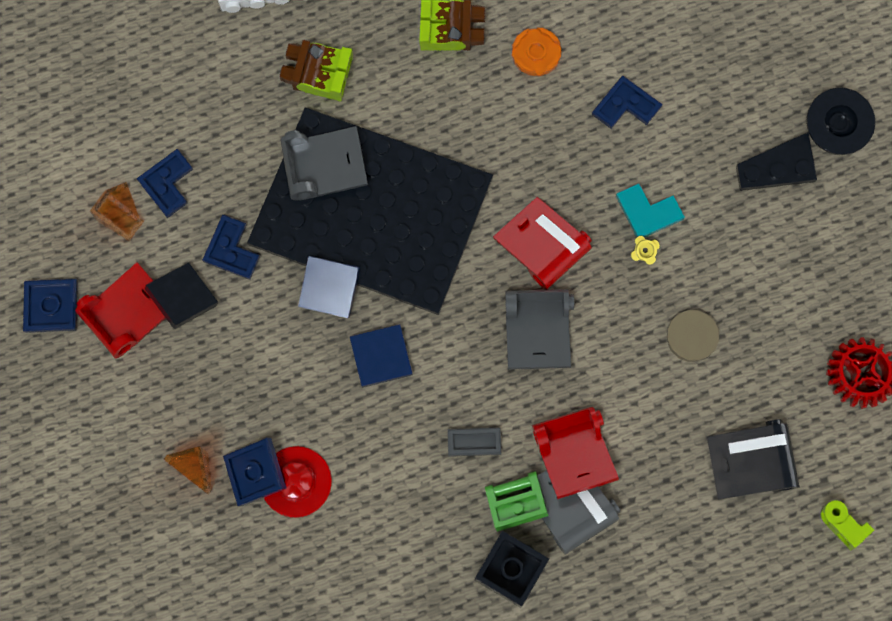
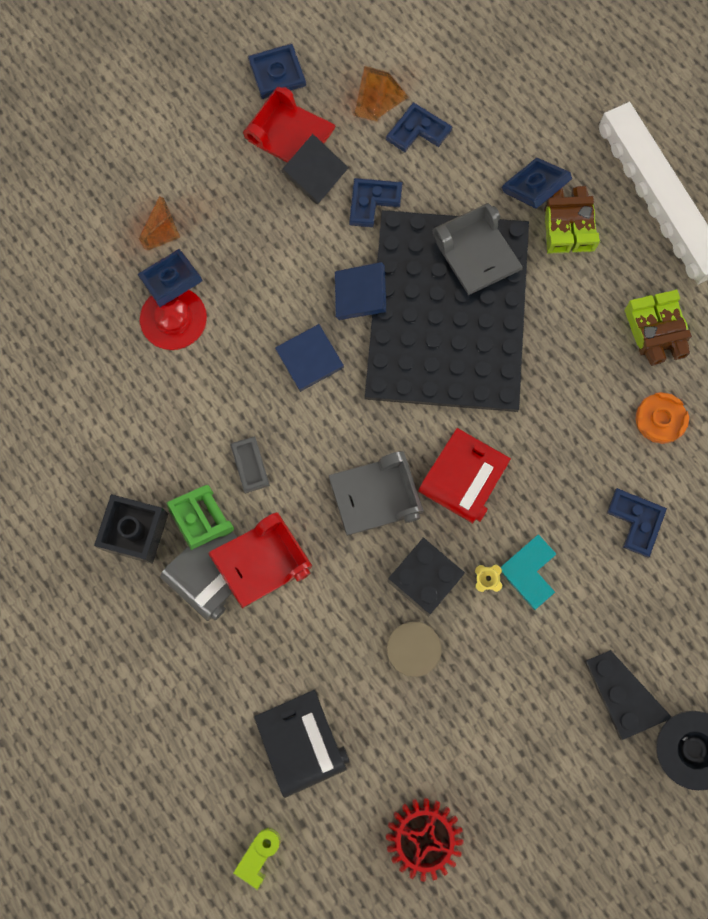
camera: 75 degrees right, 0 degrees up
(268, 87) = (536, 182): none -> dark blue tile
(631, 304) = (425, 577): none -> black brick

